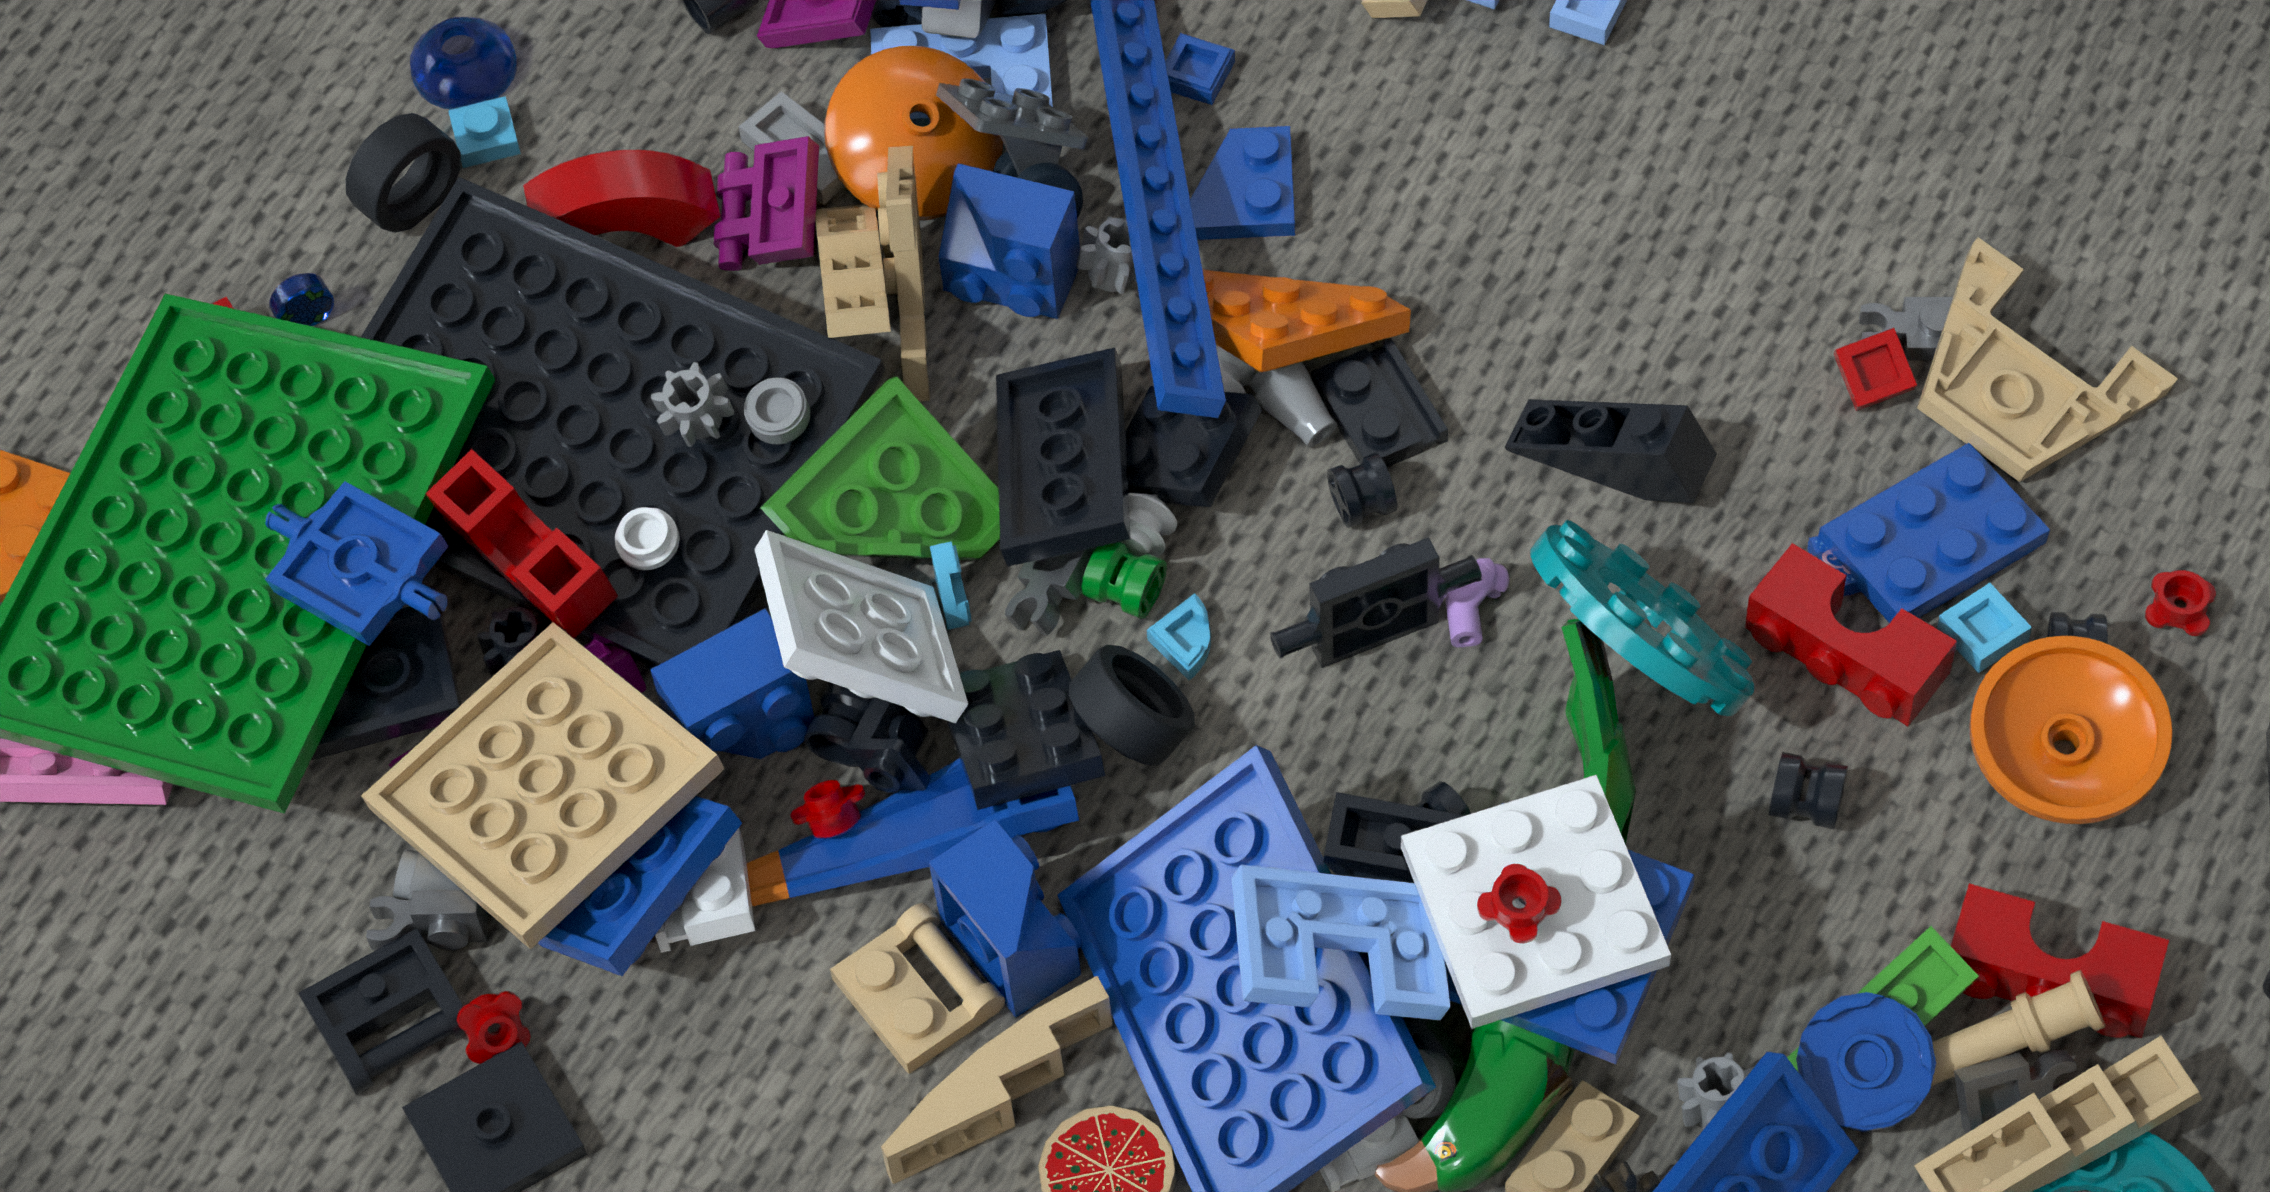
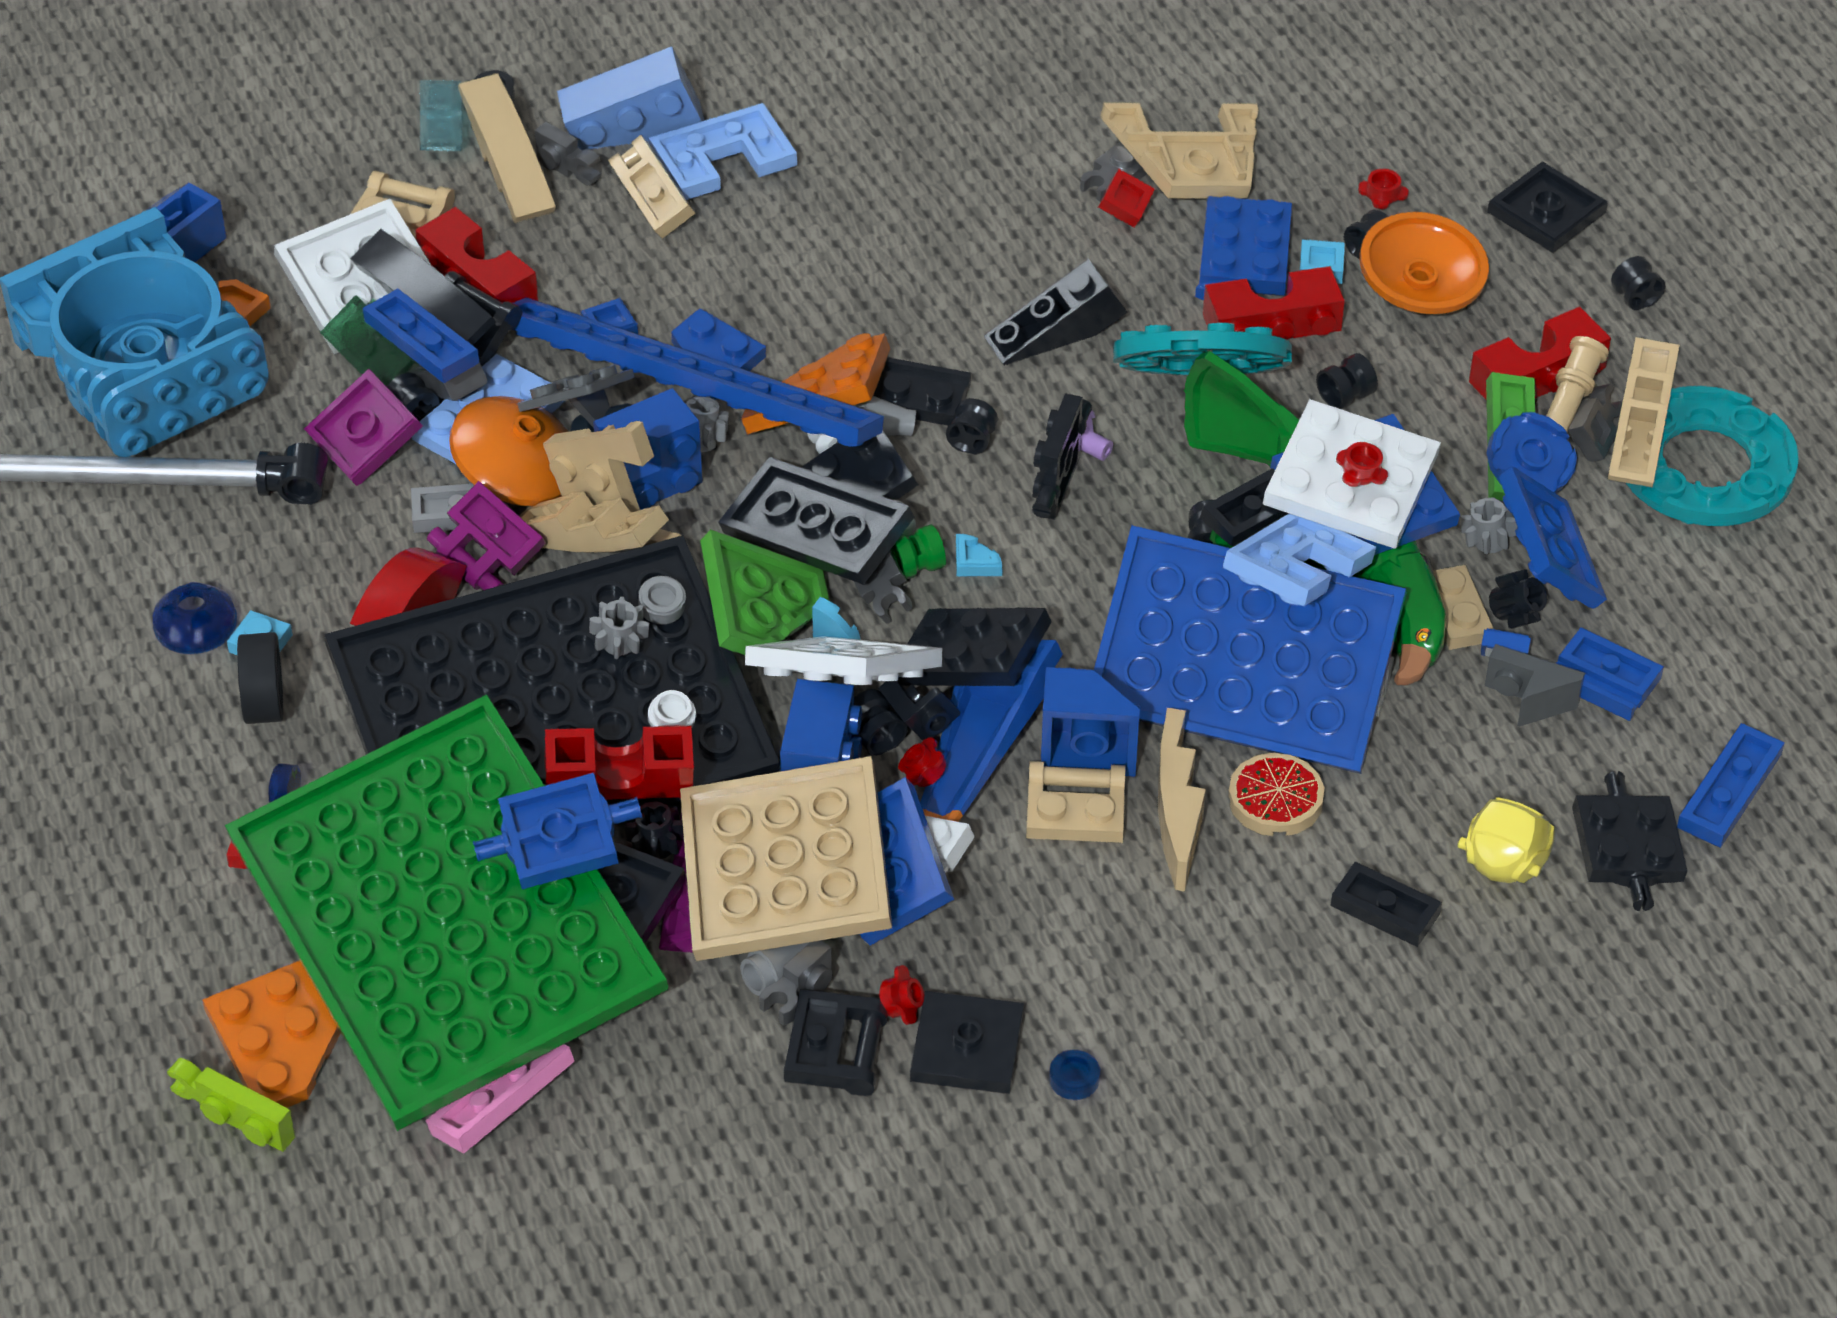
camera: 55 degrees left, 10 degrees down
(1131, 705) = (1010, 589): black tyre -> none

